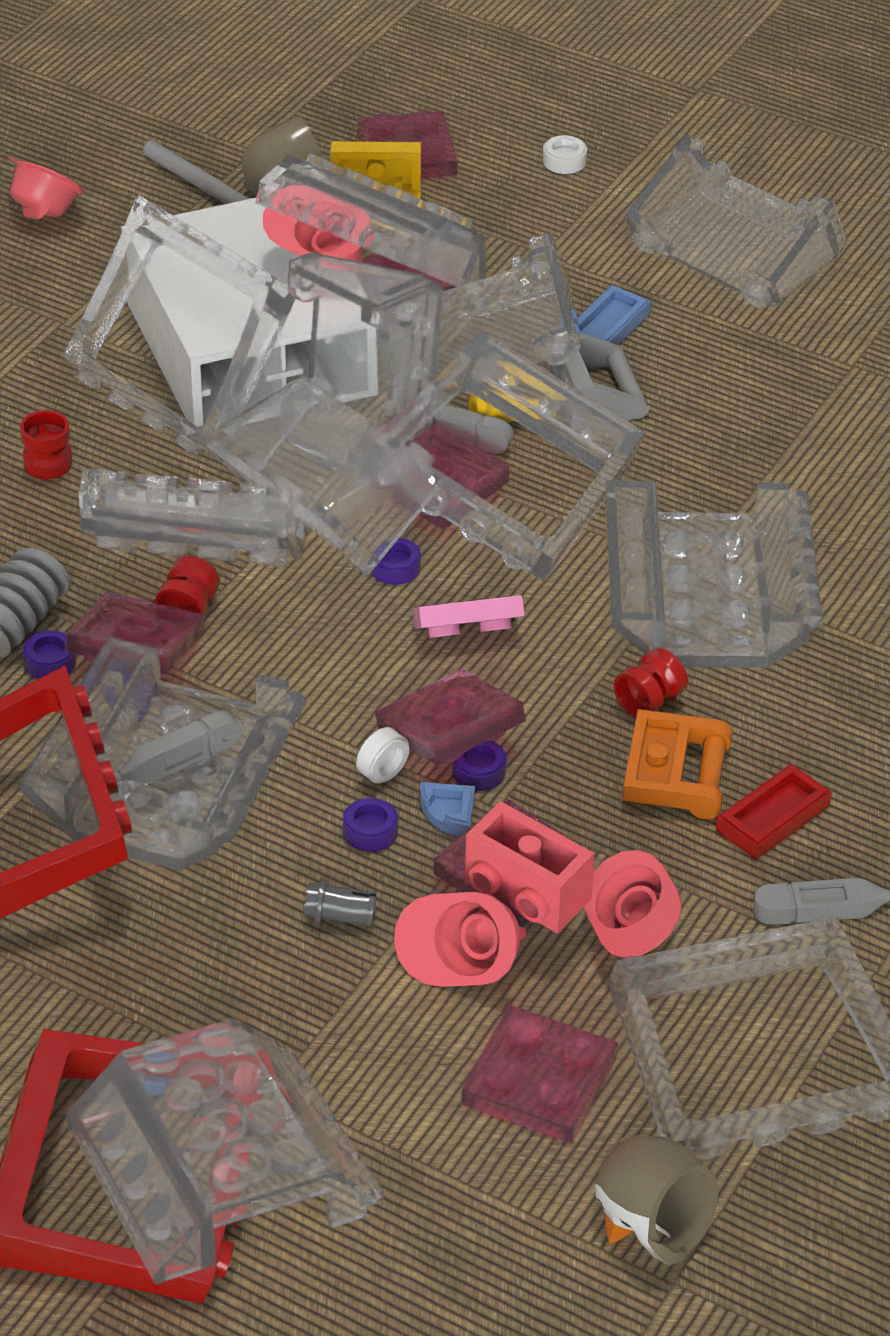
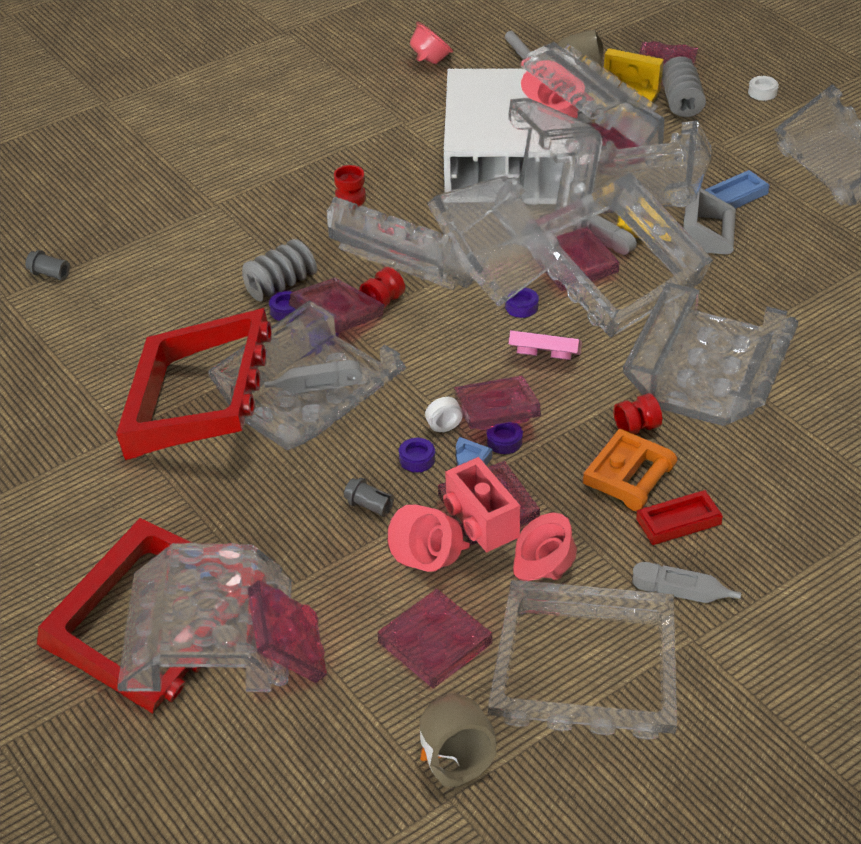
camera: 25 degrees right, 0 degrees up
(143, 232) = (492, 138): clear windscreen -> none
(349, 1125) = (287, 631): none -> clear pink plate
(459, 177) = (683, 87): none -> light grey piece

